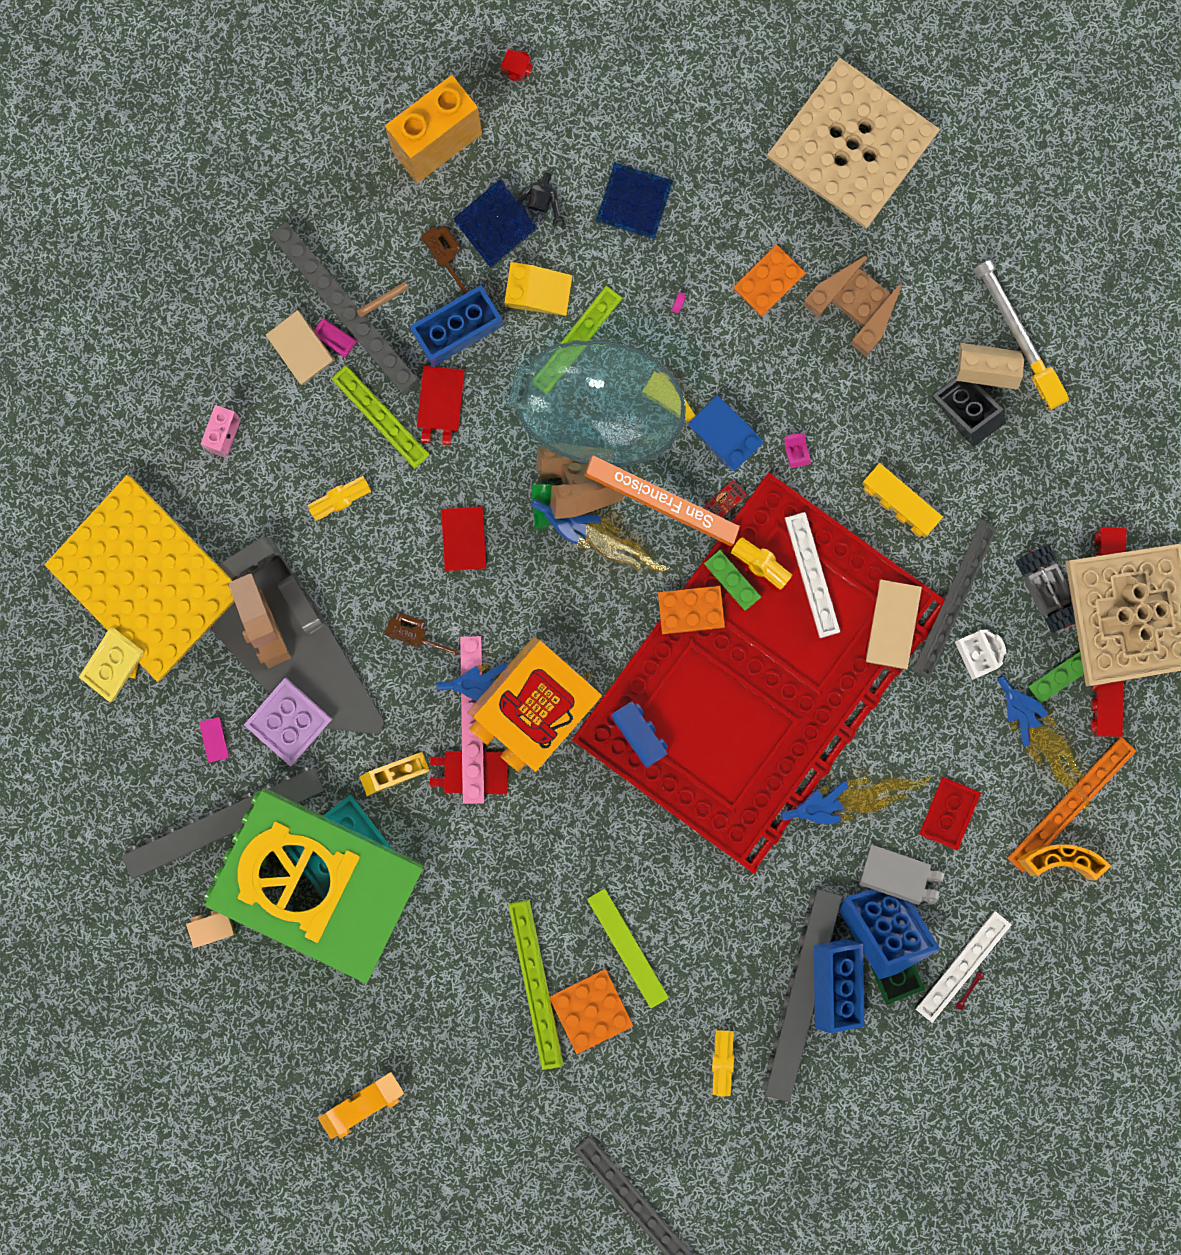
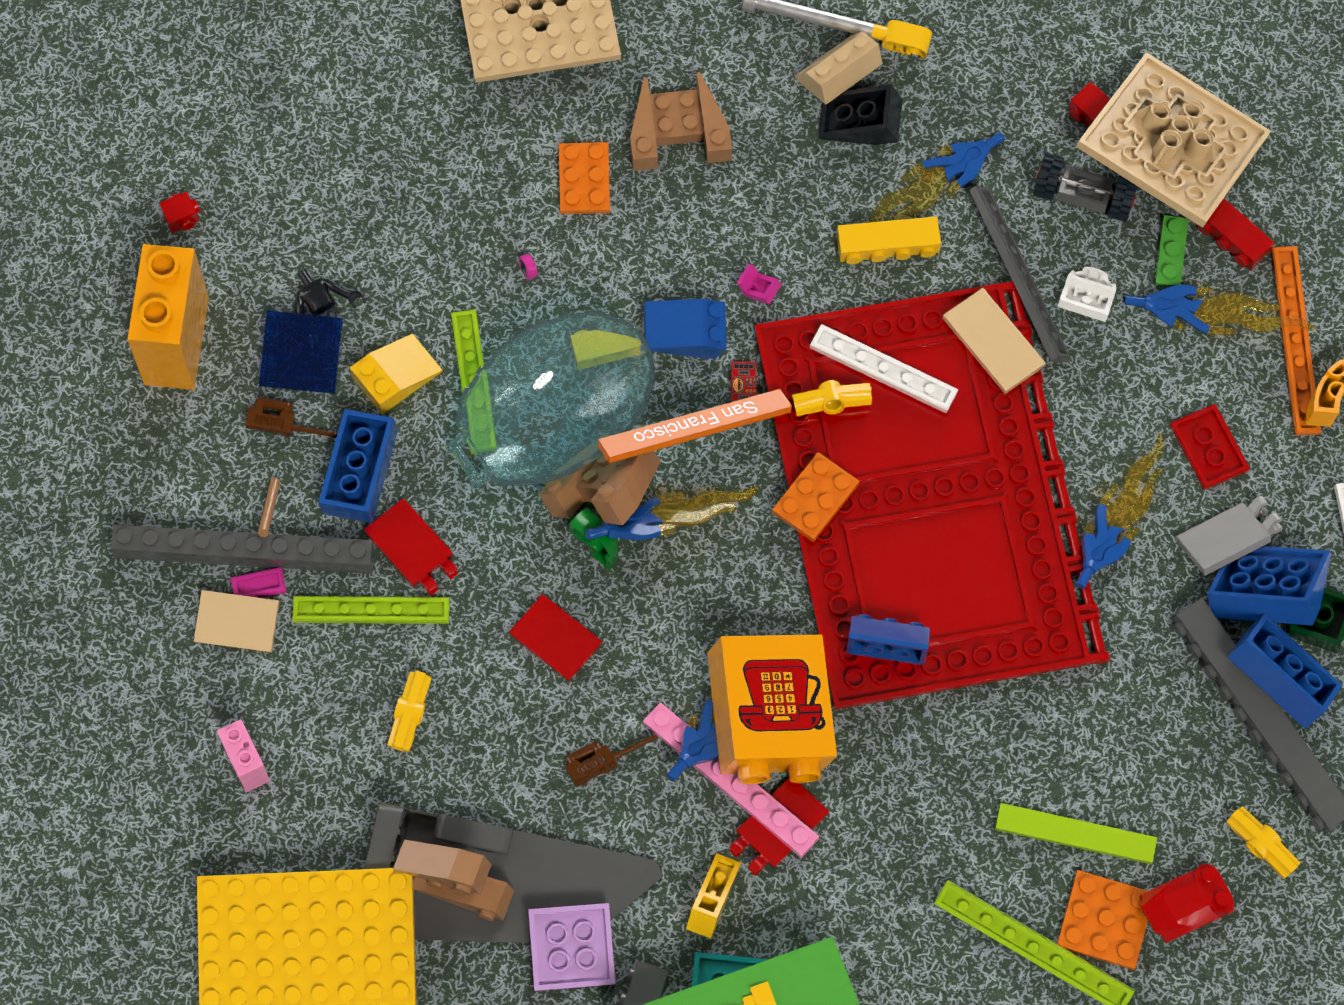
camera: 50 degrees left, 15 degrees down
(634, 201) = (400, 224): clear blue plate -> none
(642, 1050) = (1187, 903): none -> red slope
(732, 580) = (823, 438): bright green plate -> none
(975, 489) = (937, 172): none -> piece

